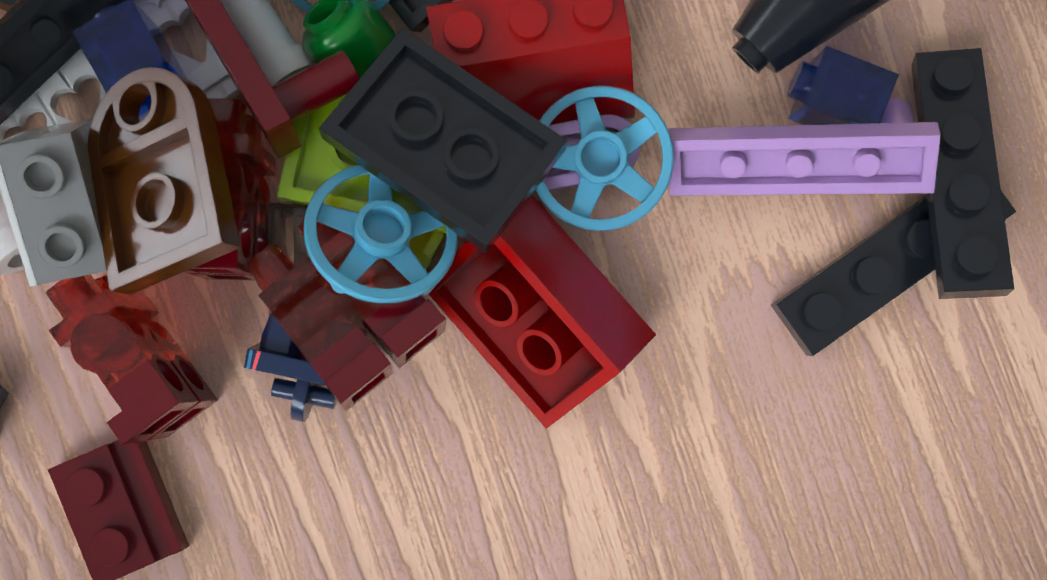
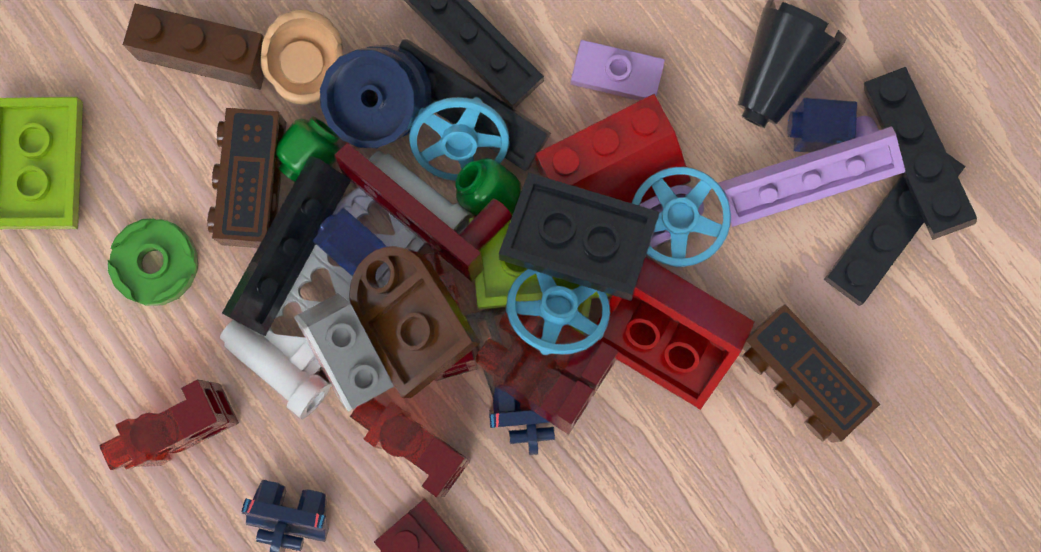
camera: 10 degrees left, 5 degrees down
(706, 431) = (808, 376): none -> brick

